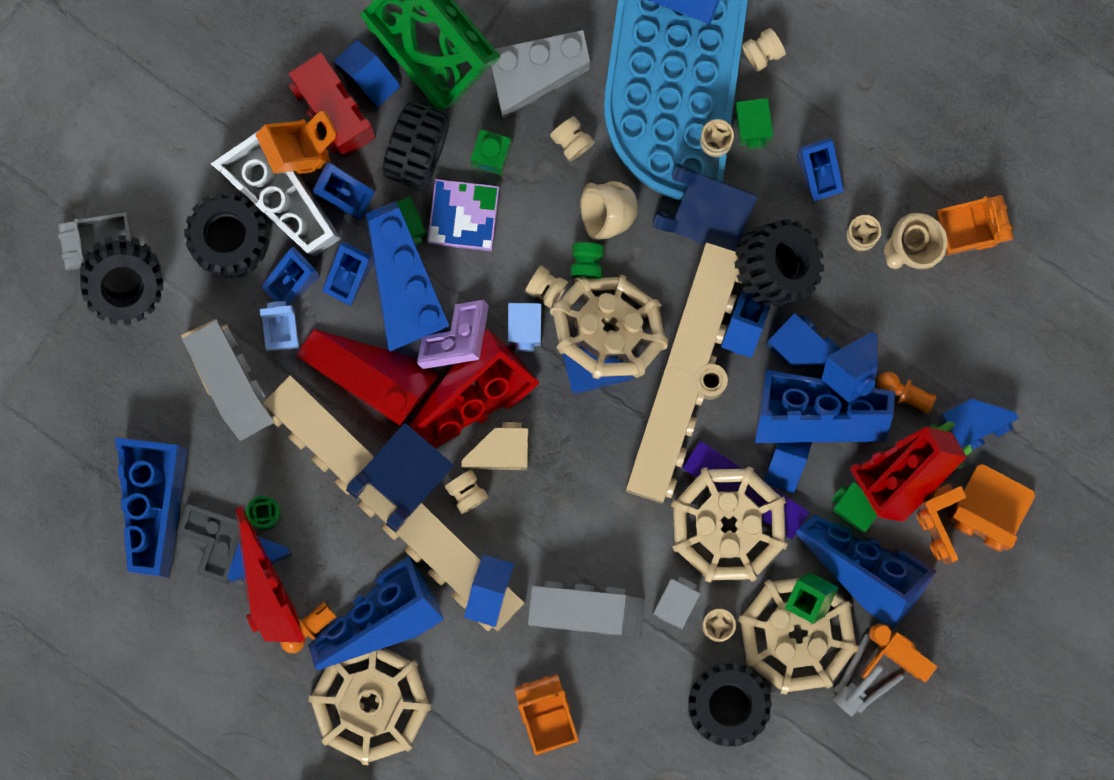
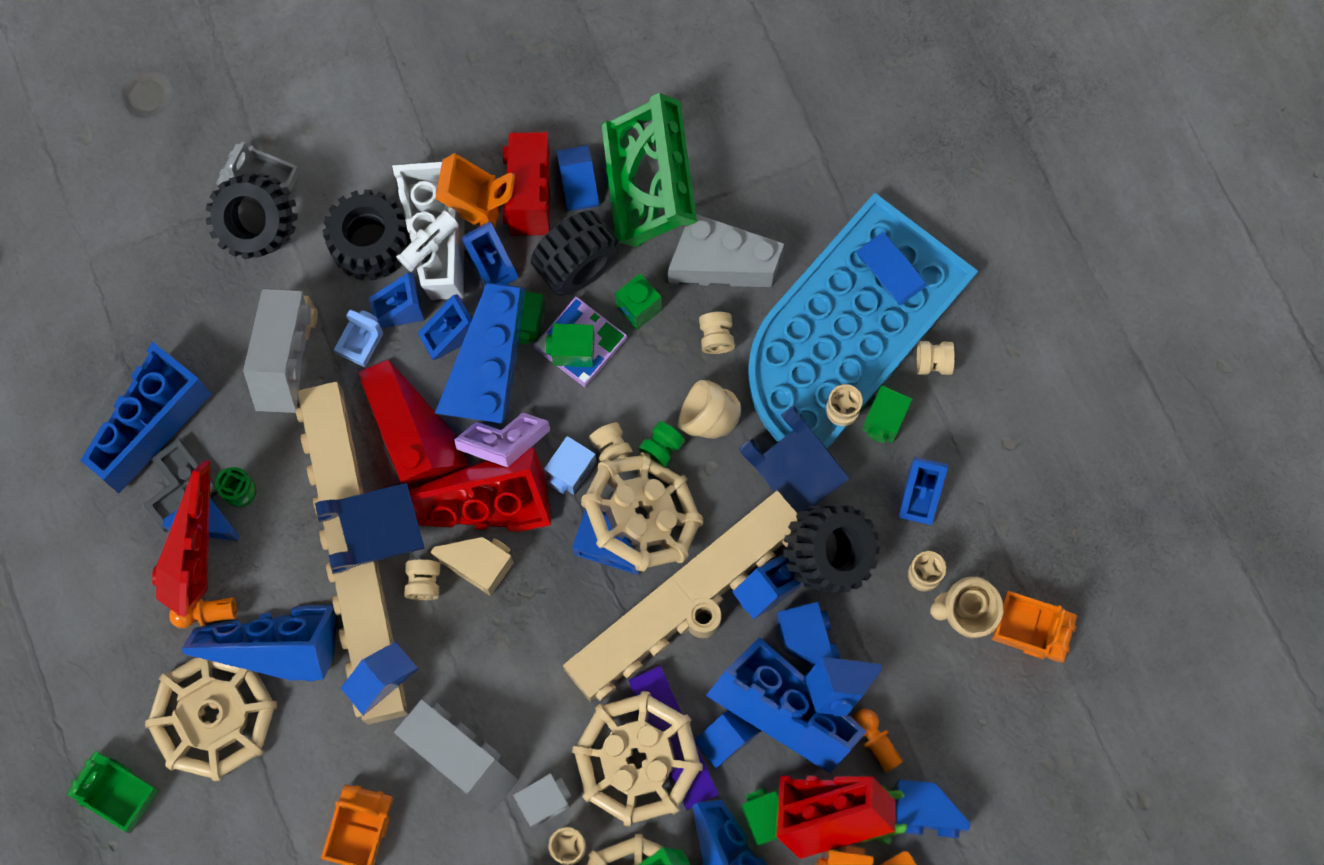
camera: 30 degrees right, 10 degrees down
(289, 212) = (444, 224): none -> white pin
(462, 224) = (571, 345): none -> green brick

